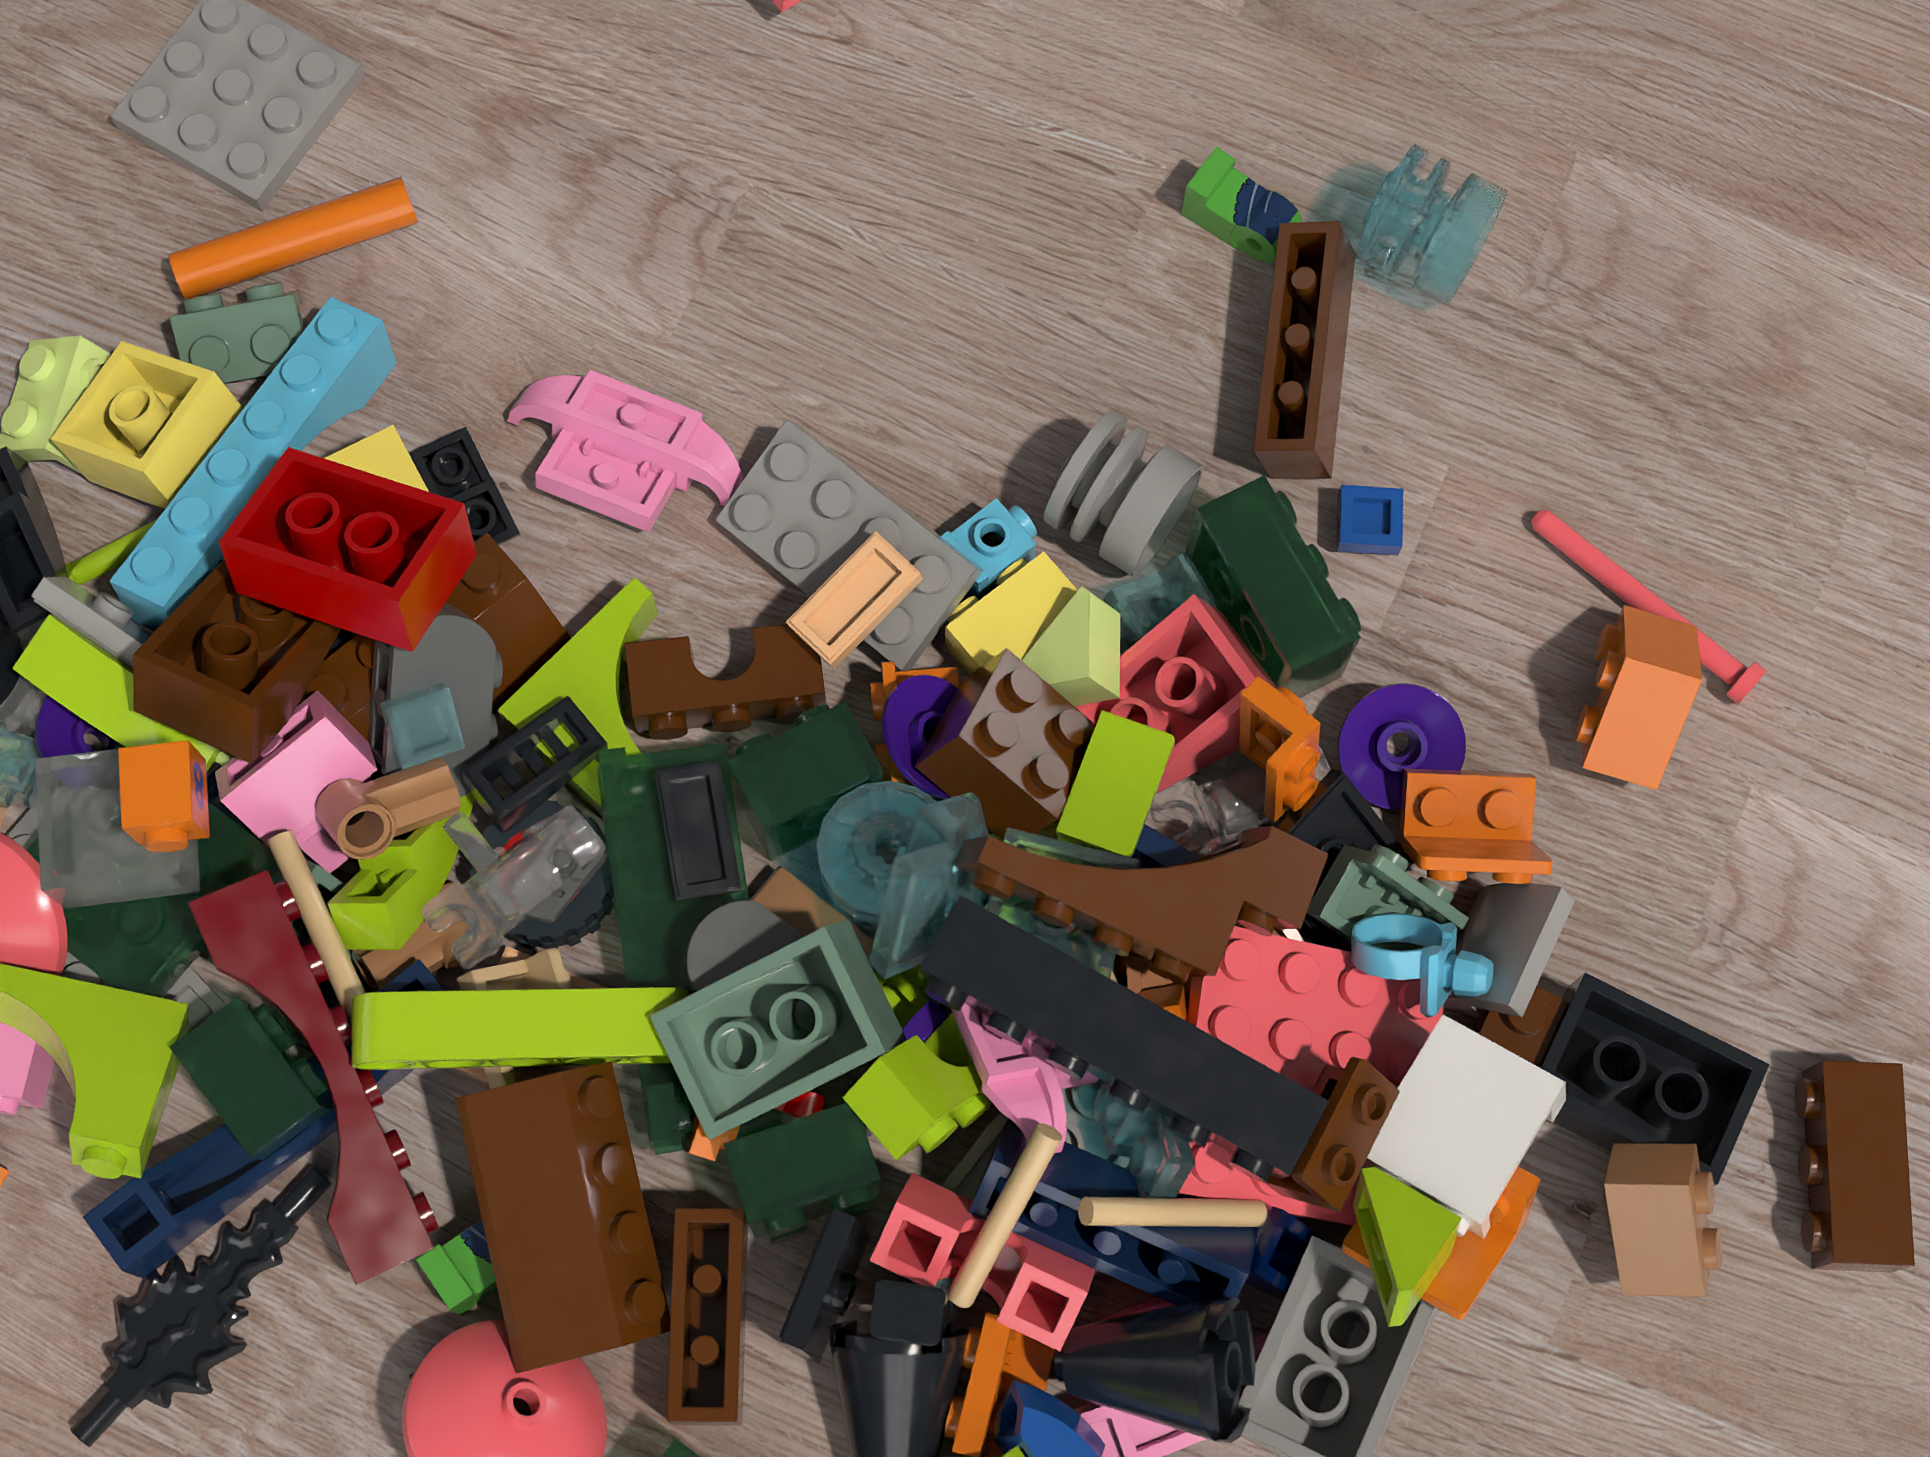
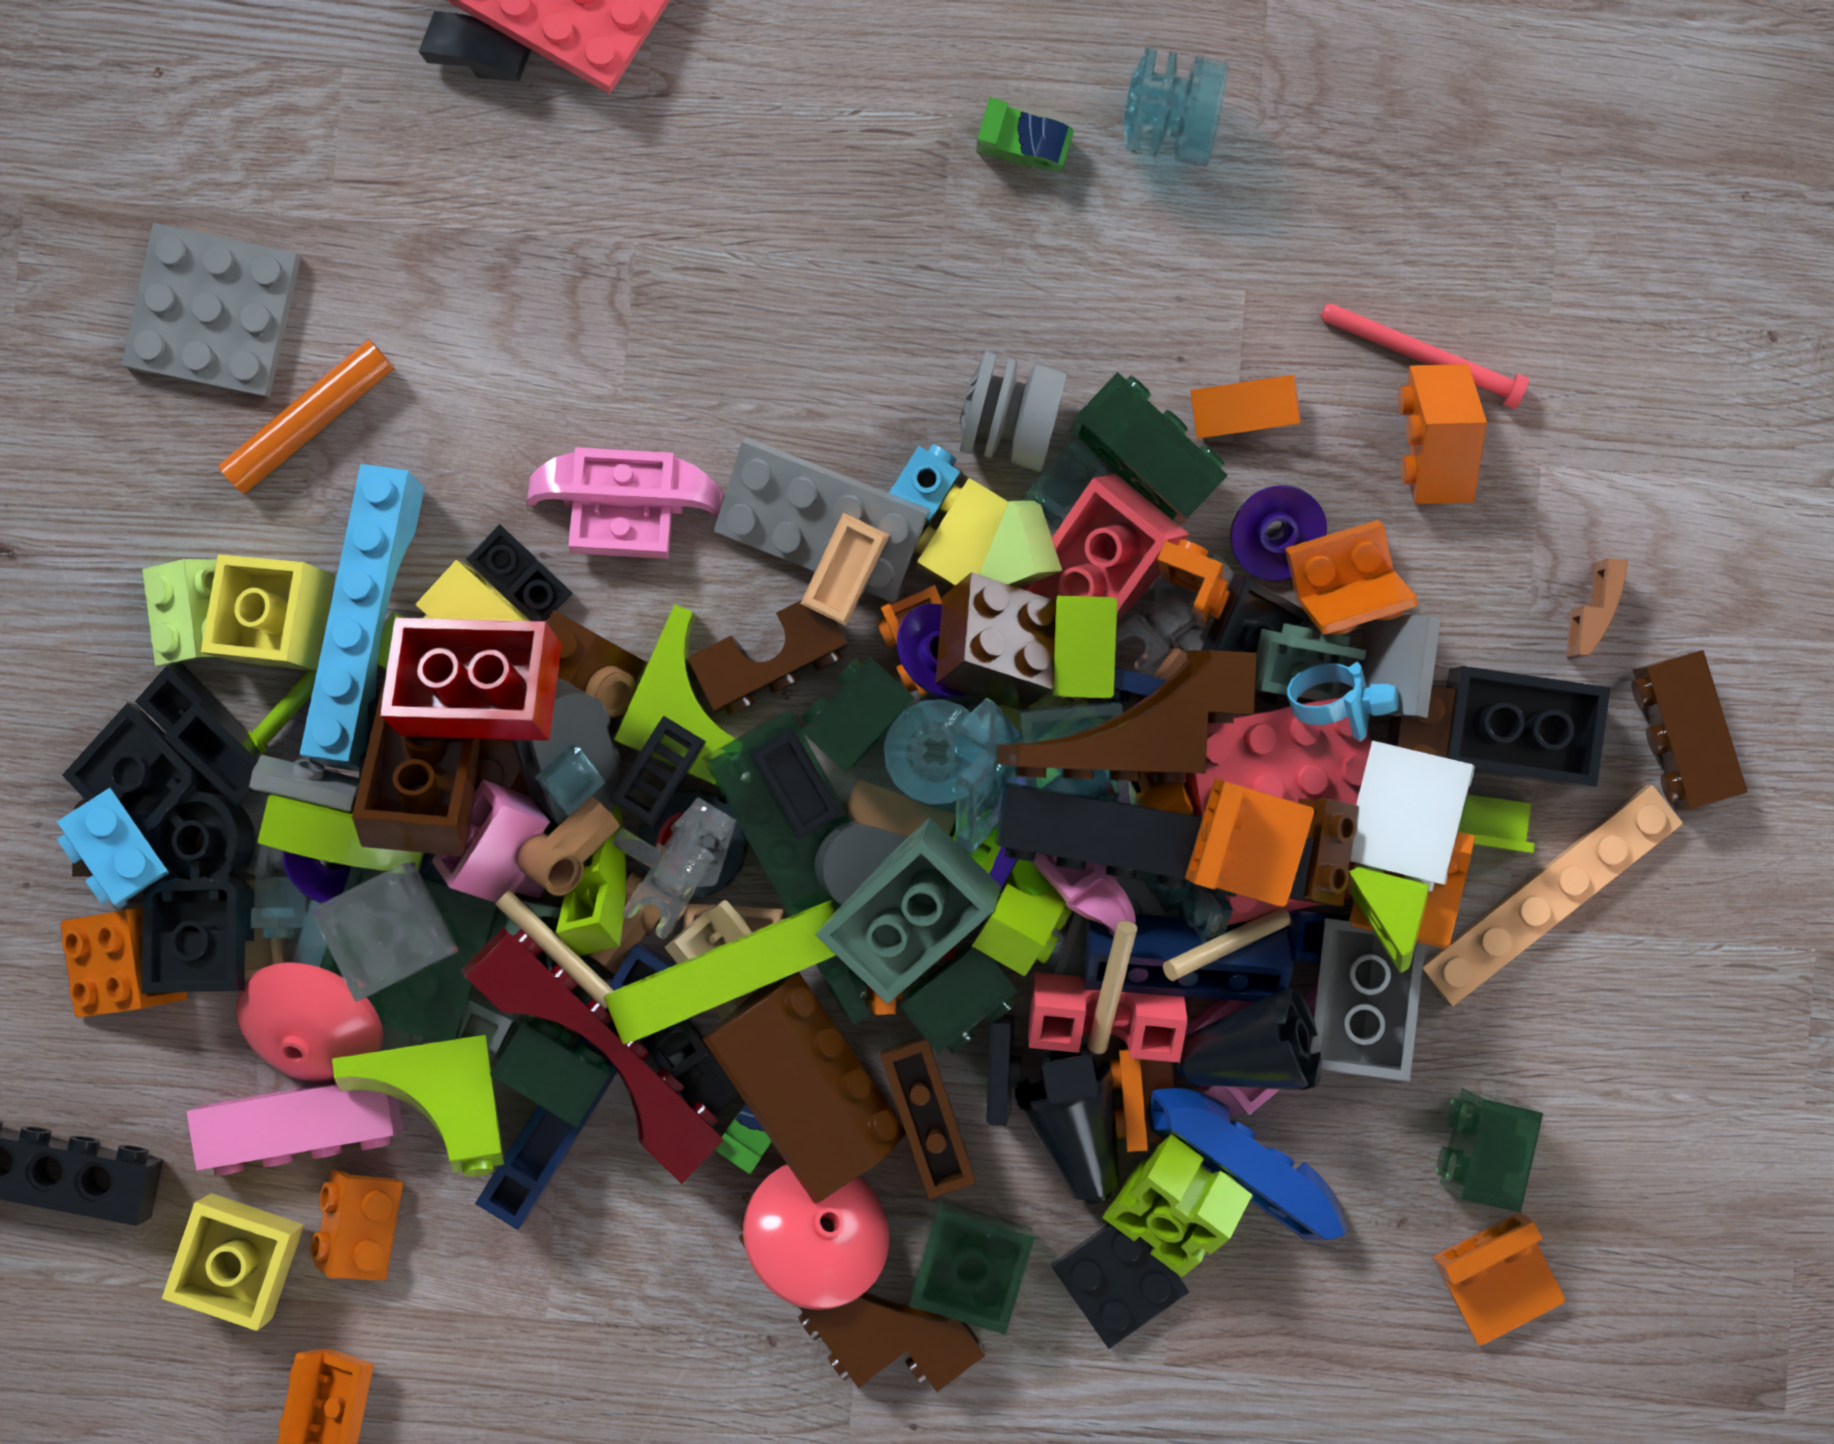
camera: 20 degrees left, 15 degrees up
(163, 795) = (417, 910): orange brick -> none
(185, 1320) = (567, 1239): black piece -> none
(240, 336) = (298, 509): sand green bracket -> none
(435, 1144) = (690, 1061): none -> black slope
(521, 652) = (613, 688): none -> medium nougat tile
(1244, 1071) = (1249, 843): none -> orange bracket
(1305, 351) = (1110, 242): reddish brown brick -> none
(1370, 520) = (1200, 360): blue plate -> none
(1409, 588) = (1245, 406): none -> orange slope
(1568, 1201) = (1497, 823): none -> lime panel
(1608, 1327) = (1551, 894): none -> light nougat plate
(1660, 1219) = (1564, 823): medium nougat brick -> none
(1769, 981) = (1591, 622): none -> nougat slope

